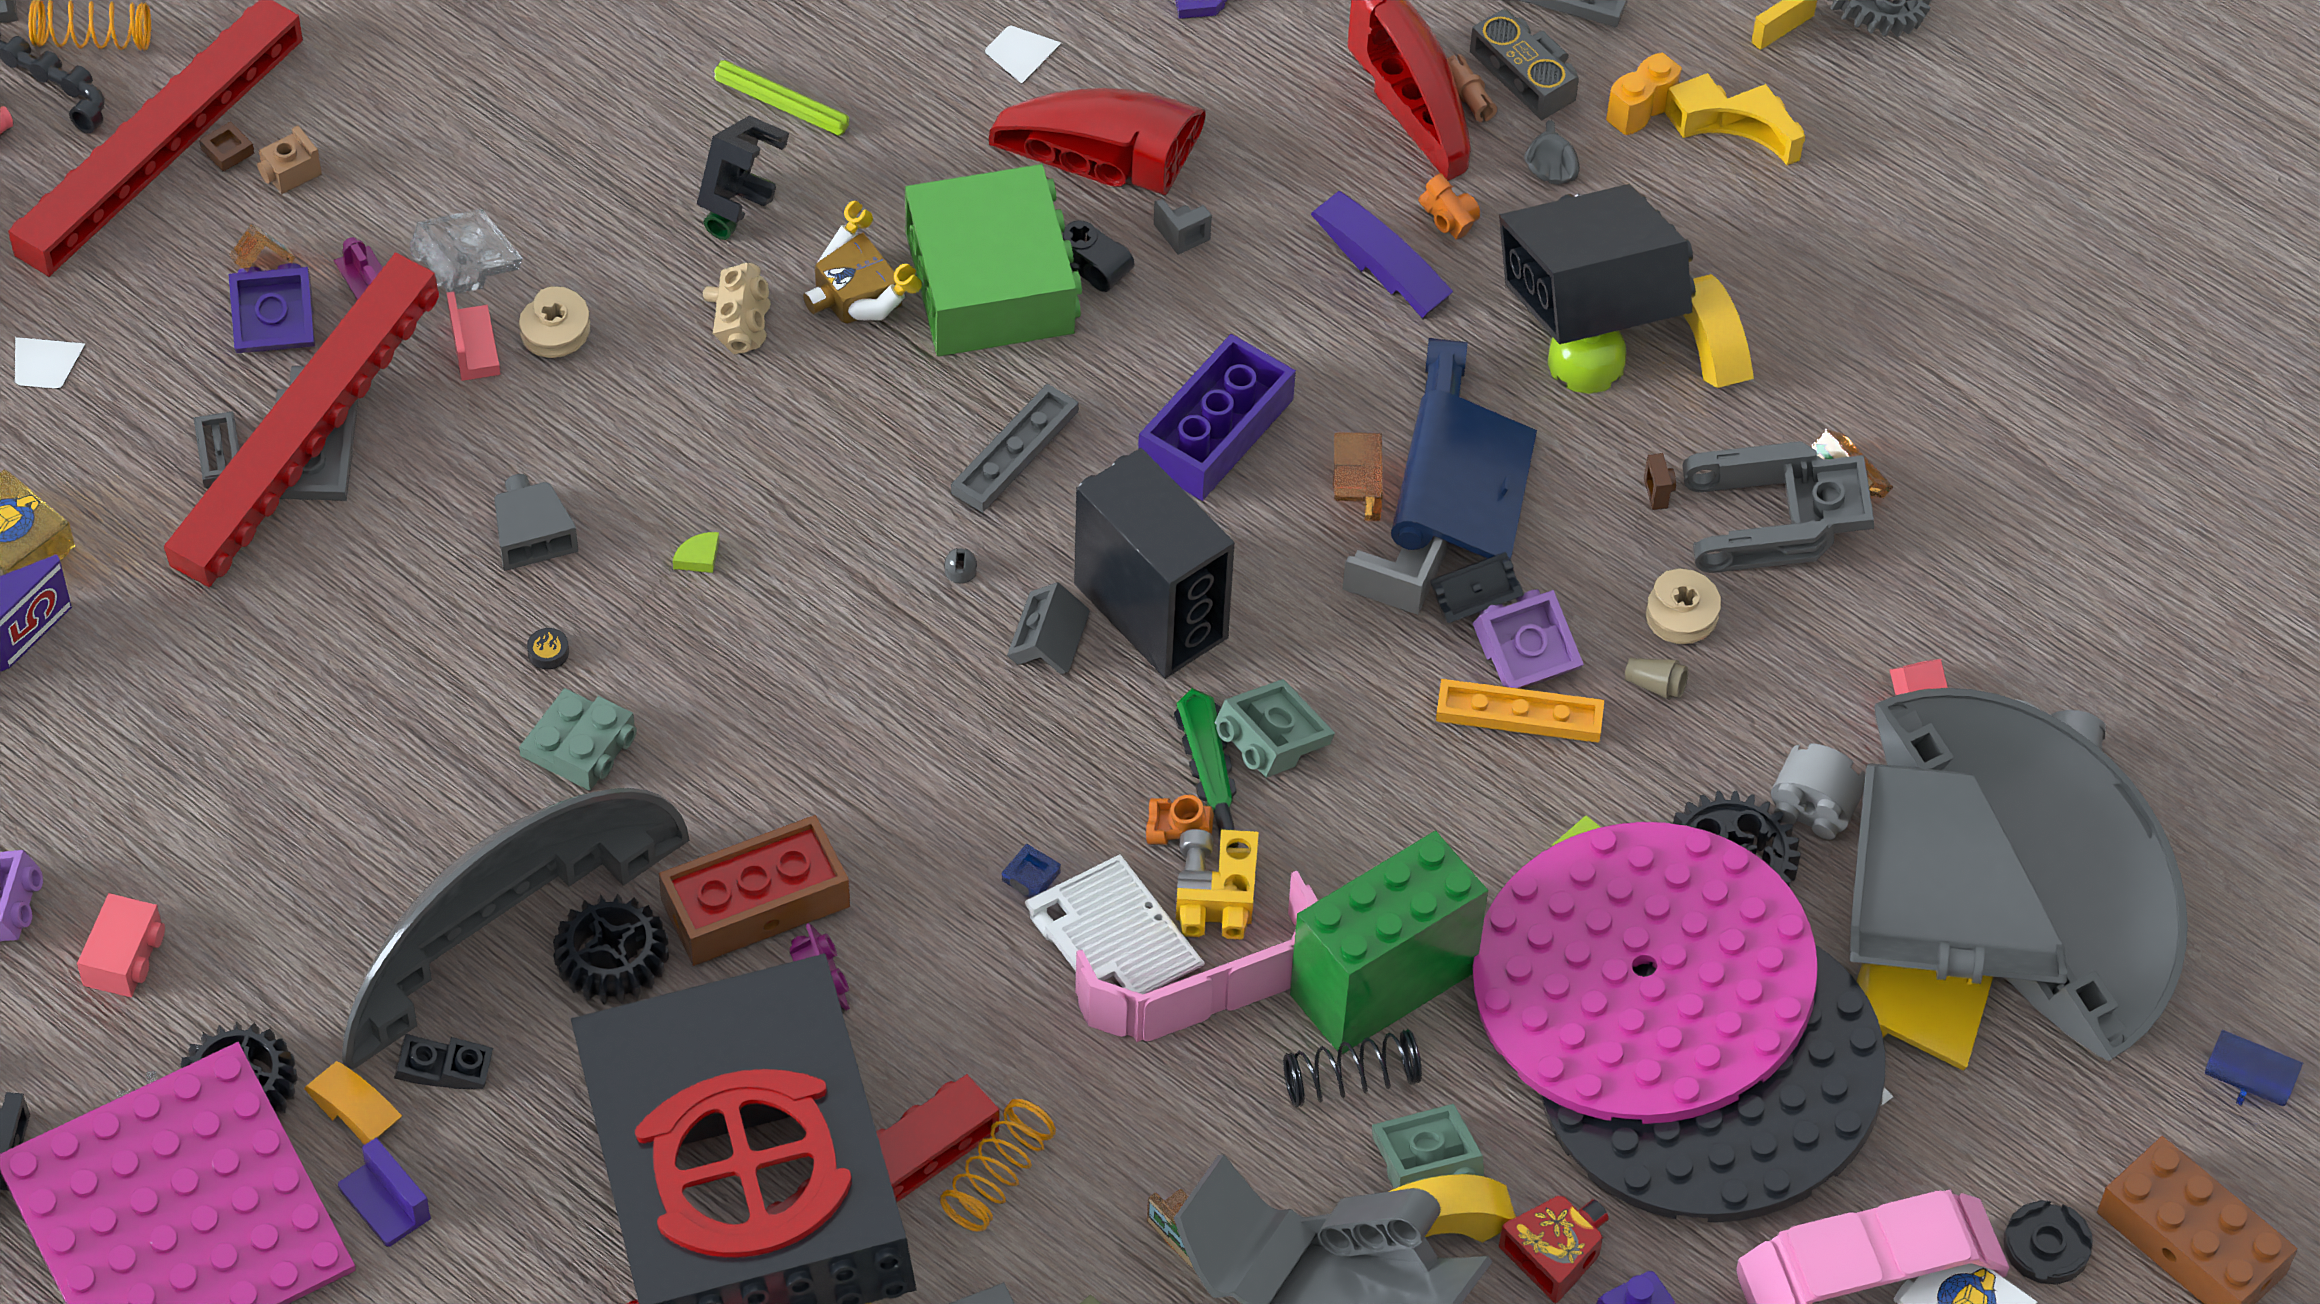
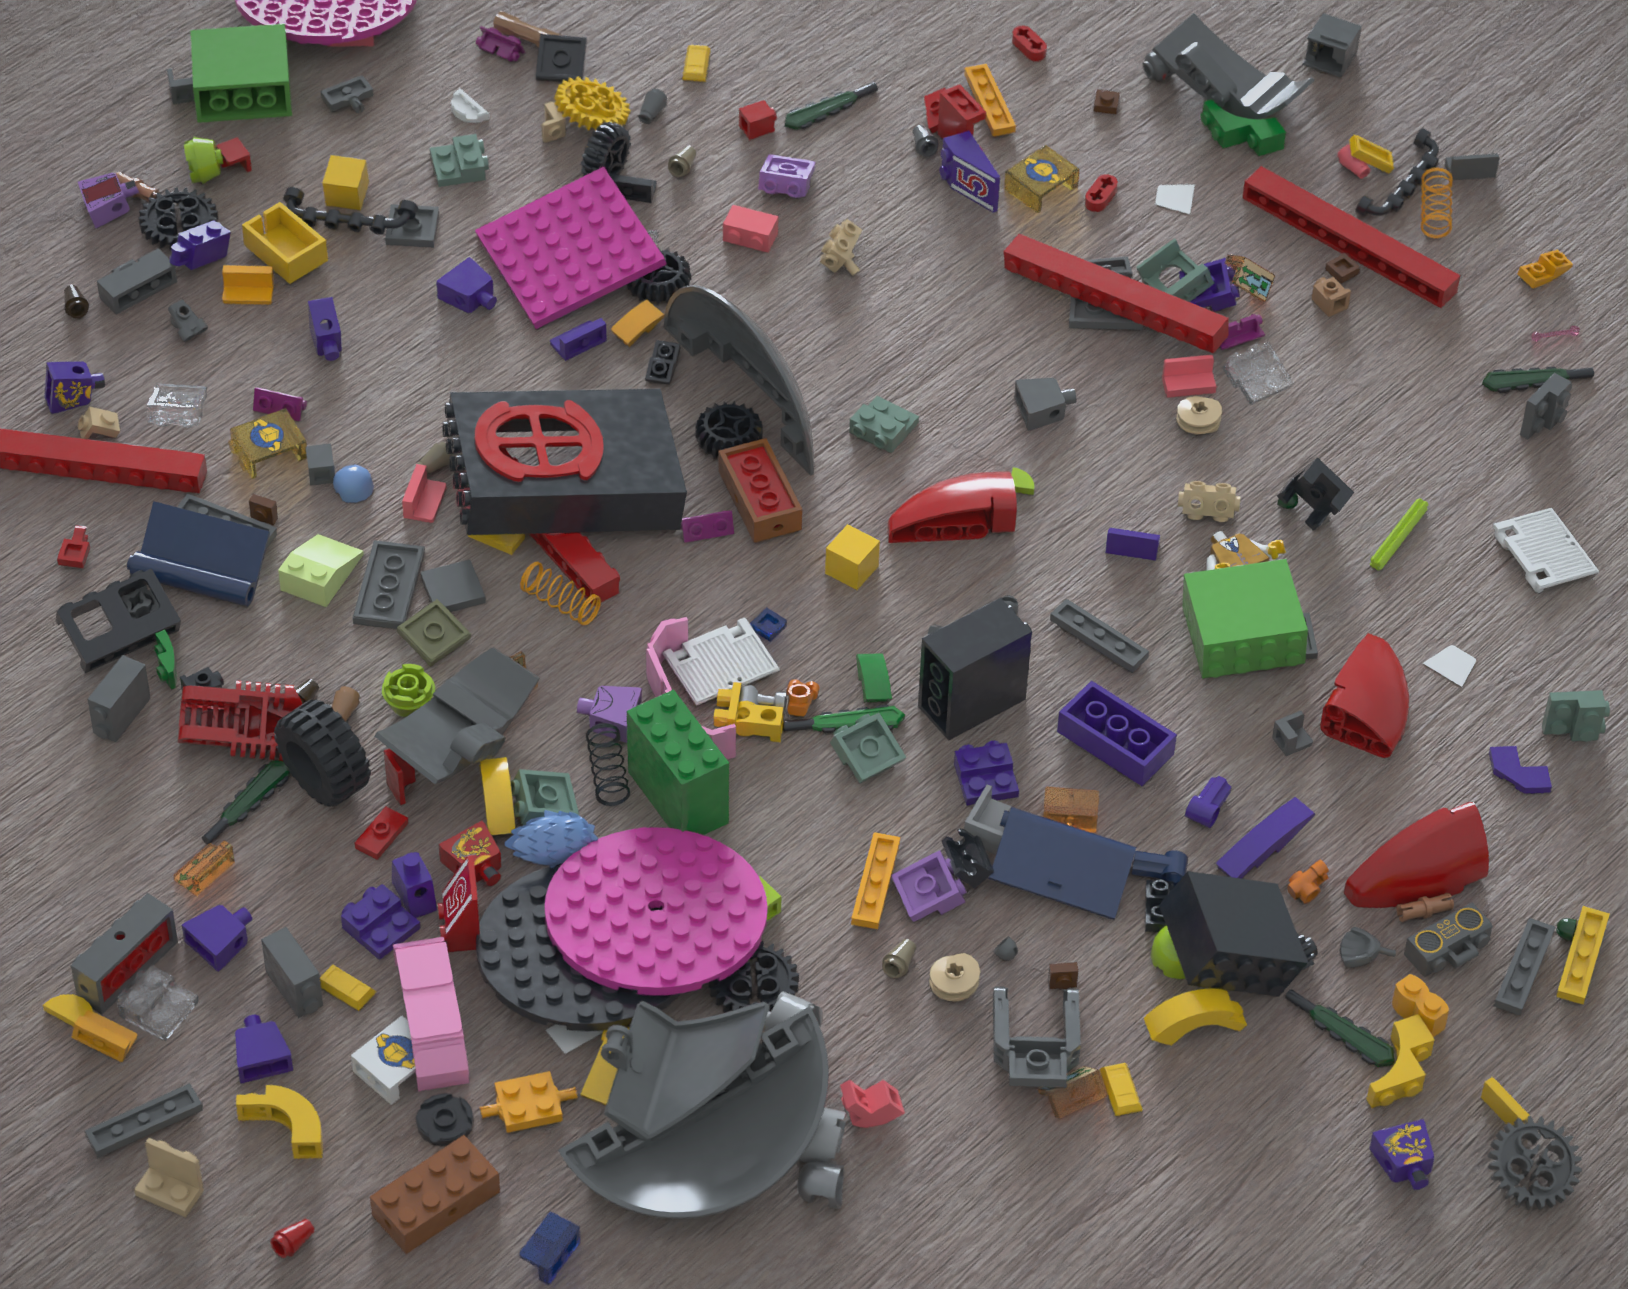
camera: 95 degrees right, 5 degrees down
(39, 454) = (1097, 191): none -> red beam
(173, 806) = (839, 248): none -> tan brick
(216, 341) = (1170, 255): none -> sand green panel
(548, 648) = (951, 412): black tile -> none
(764, 621) = (957, 509): none -> red panel
(820, 410) = (1132, 544): none -> dark purple panel
(891, 757) = (852, 557): none -> yellow head
(1097, 257) = (1260, 683): black piece -> none
(1121, 725) = (874, 677): none -> green slope
(1238, 1071) = (611, 707): none -> medium lavender torso
(1296, 583) = (984, 766): none -> dark purple plate
(1331, 323) = (1206, 807): none -> dark purple piece
(1500, 380) = (1154, 895): none -> black slope
(1523, 1124) = (551, 838): none -> medium blue head
(1609, 550) = (1006, 949): none -> dark grey hinge
(1689, 1226) = (460, 909): none -> red slope
(1694, 168) = (1357, 1039): none -> dark green sword
(1839, 416) = (1120, 1089): none -> yellow tile
(1877, 117) = (1404, 1152): none -> dark purple torso
(1997, 1131) = (528, 1102): none -> light orange plate

